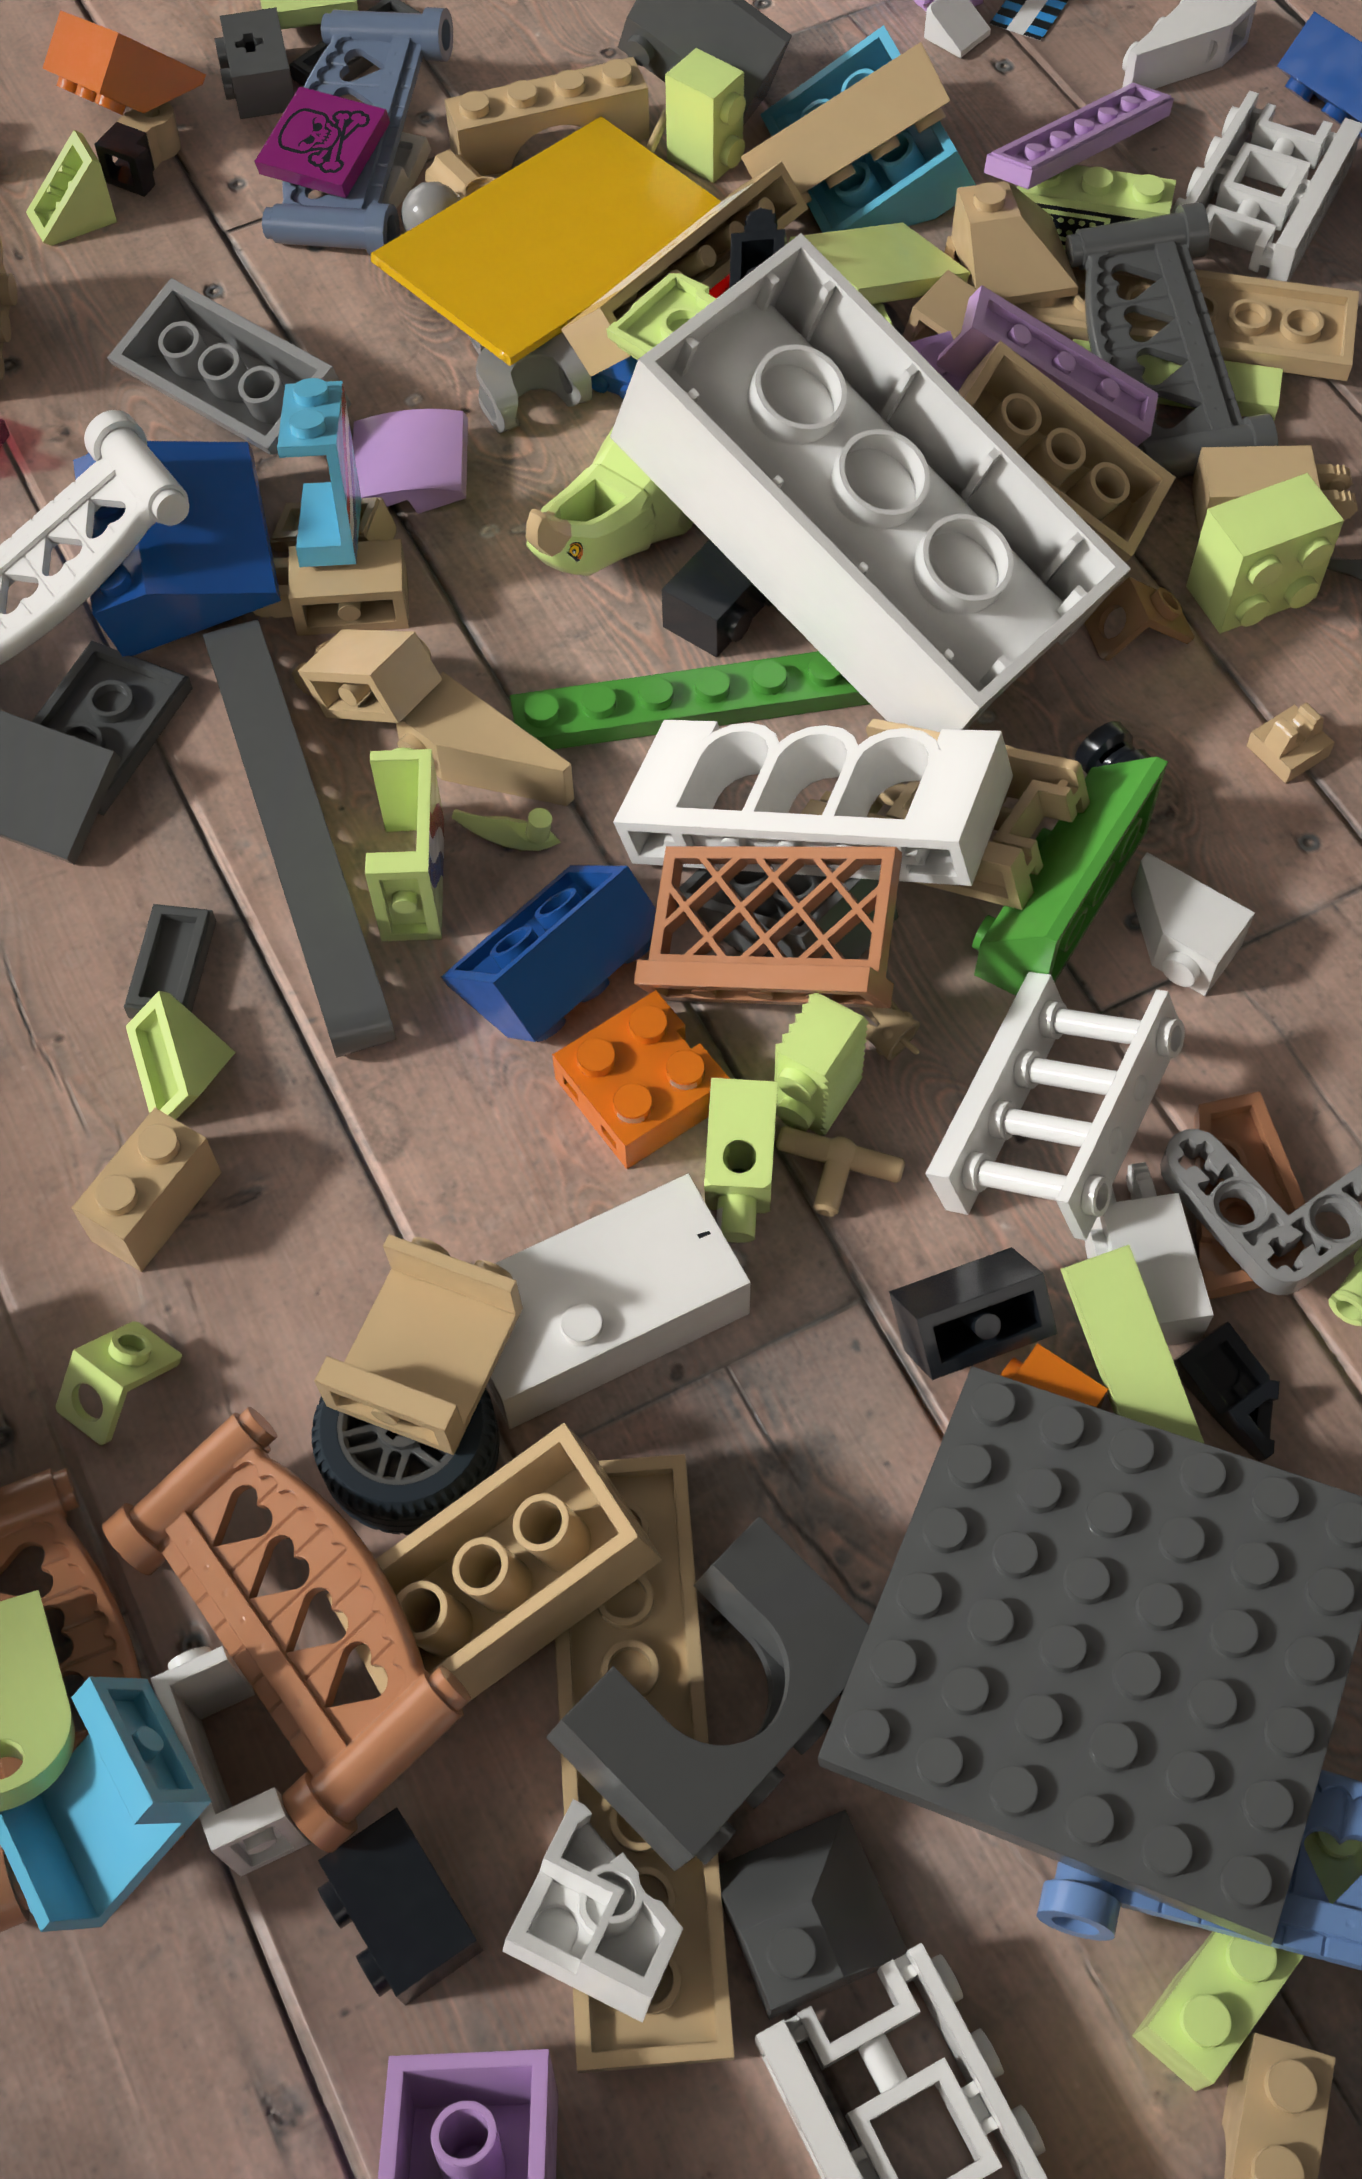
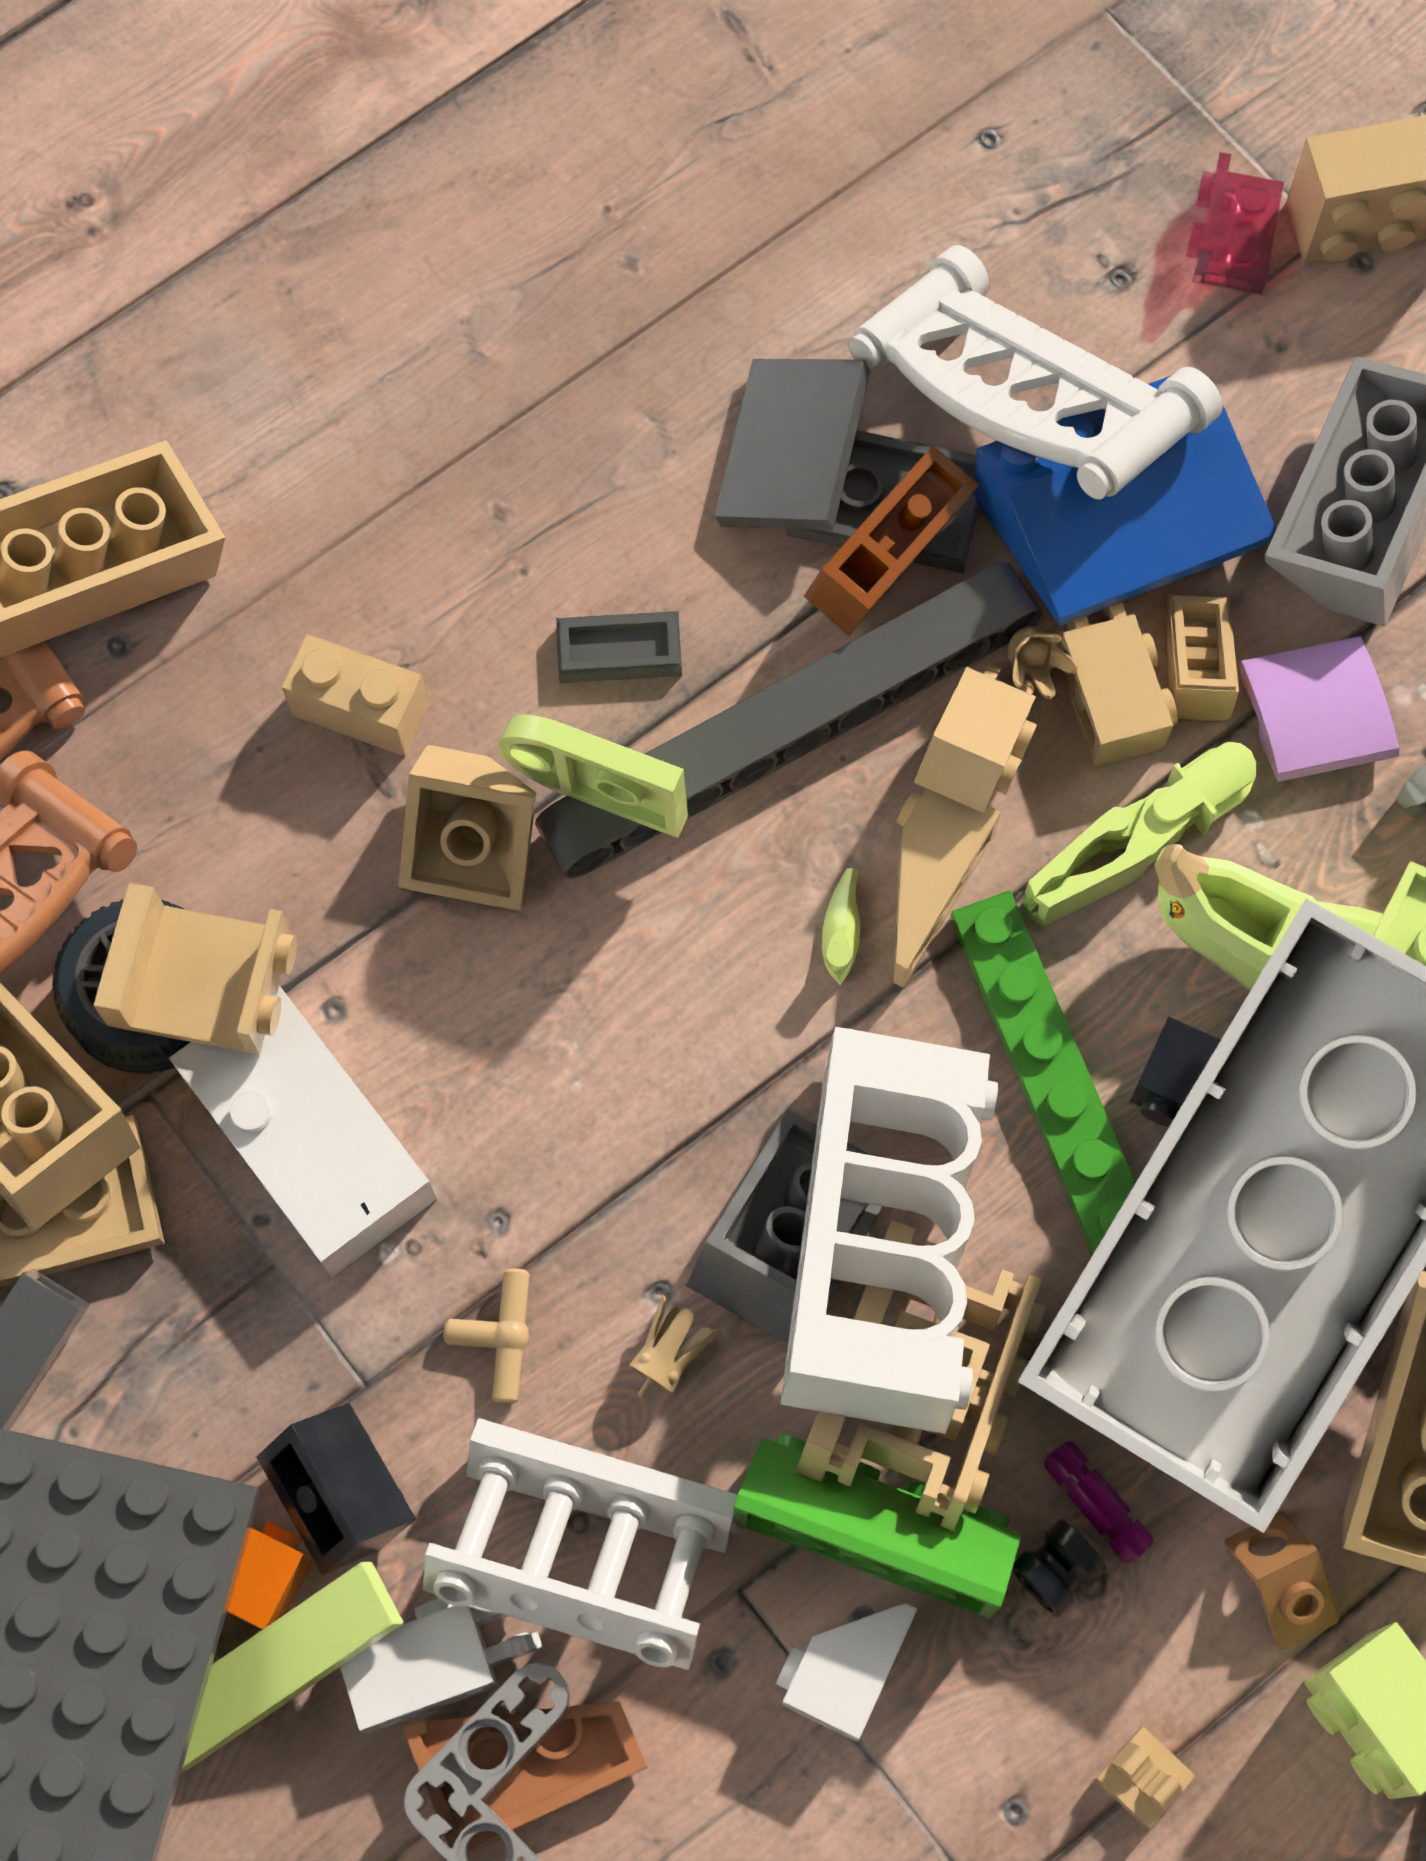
camera: 80 degrees right, 10 degrees up
(112, 1367) = (182, 723): yellowish green bracket -> none
(155, 714) = (890, 540): none -> dark orange slope
(174, 1054) = (508, 681): yellowish green slope -> none
(294, 636) = (1034, 654): none -> tan piece
(318, 425) = (1212, 616): medium azure panel -> none
(318, 945) = (597, 772): none -> yellowish green tile
(323, 1108) = (466, 829): none -> tan slope
(408, 884) = (778, 848): yellowish green panel -> none
(485, 587) = (1191, 796): none -> yellowish green arm
(556, 951) = (690, 1005): blue slope -> none
(638, 1078) = (558, 1121): orange piece -> none
(740, 1140) = (472, 1231): yellowish green torso -> none
(780, 977) = (659, 1219): nougat fence -> none
(819, 1064) = (577, 1288): yellowish green brick -> none
(1064, 729) = (1098, 1502): none -> magenta axle
(1232, 1388) = (315, 1766): black slope -> none

